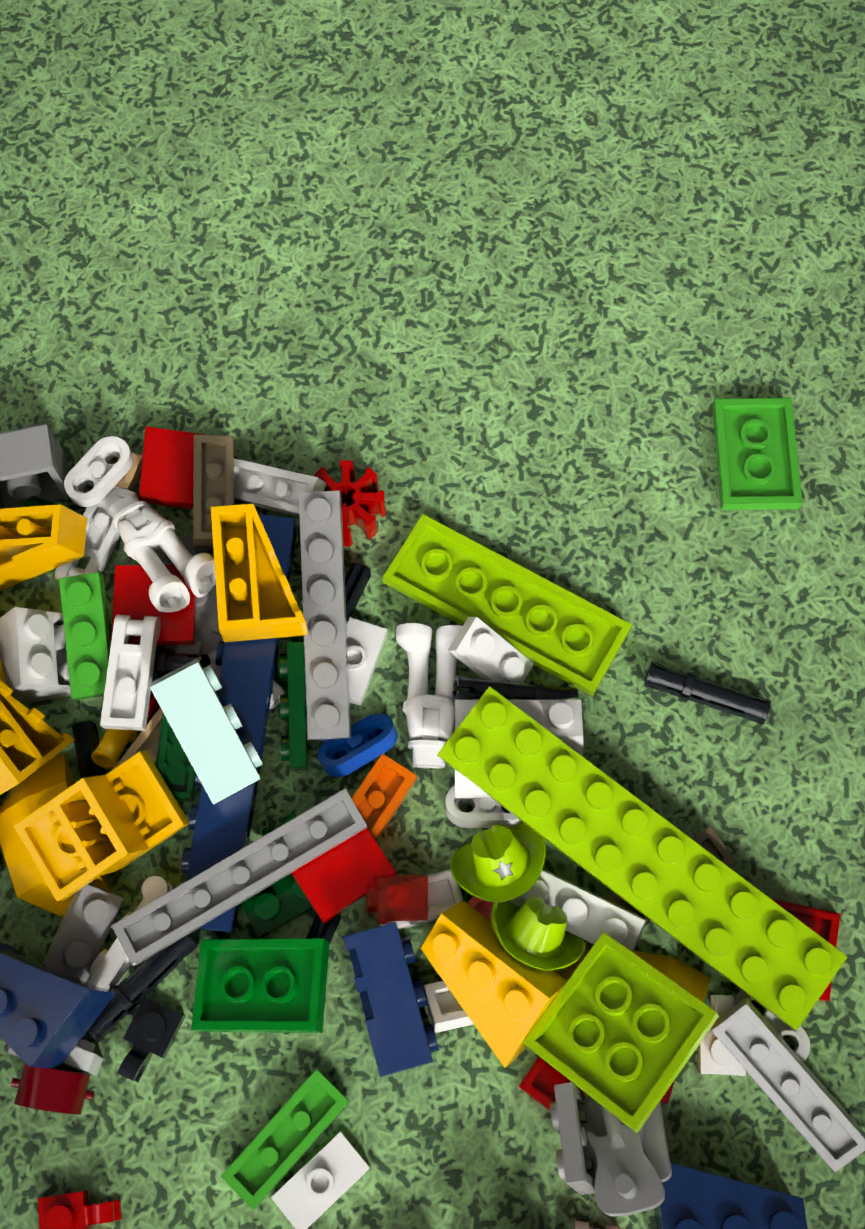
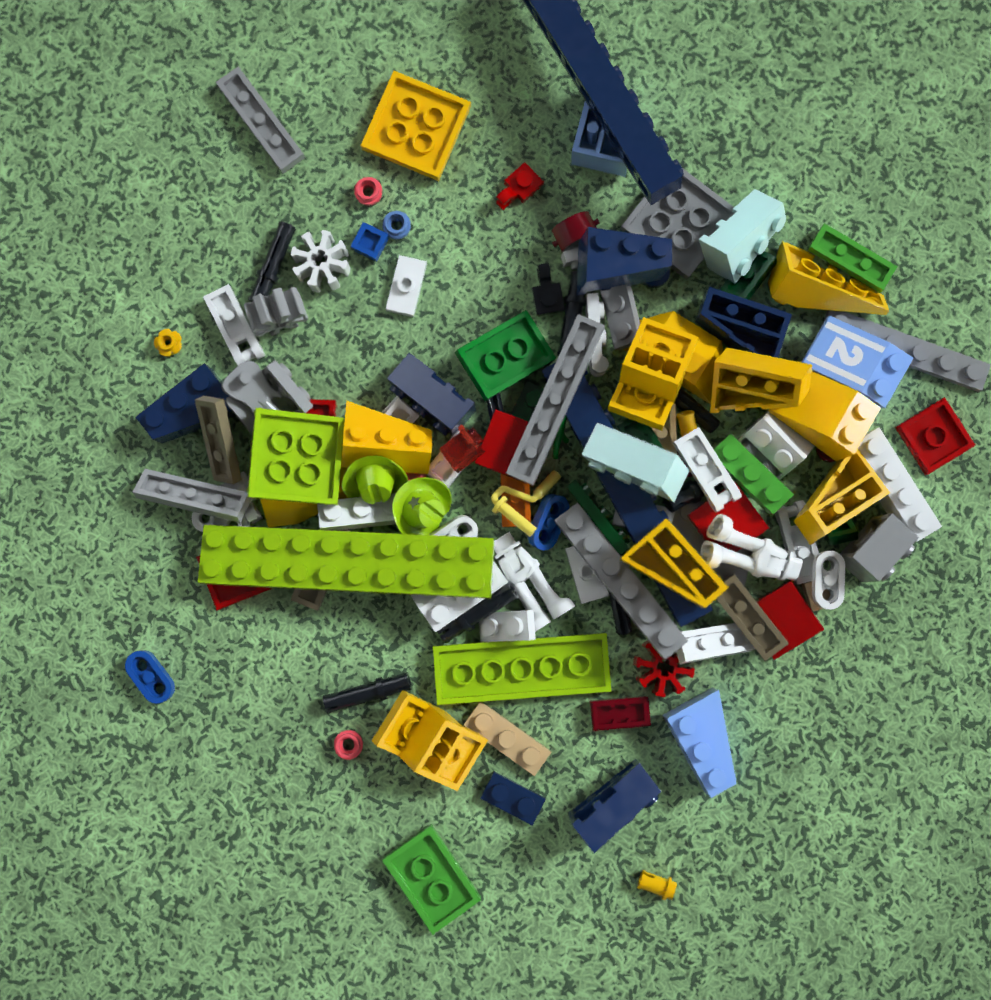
camera: 140 degrees right, 15 degrees up
(285, 1139) = (438, 293): bright green plate -> none
(359, 404) = (704, 740): none -> light blue wedge
(394, 777) = (510, 513): none -> light yellow piece
(429, 488) = (620, 713): none -> dark red plate
(506, 399) = (614, 805): none -> dark blue wedge
(513, 304) = (657, 885): none -> yellow pin
(574, 543) = (508, 738): none -> tan plate
(610, 479) = (513, 798): none -> dark blue plate
(667, 588) = (429, 740): none -> yellow bracket
(710, 1134) = (218, 439): none -> dark tan plate
(769, 639) = (340, 749): none -> coral plate

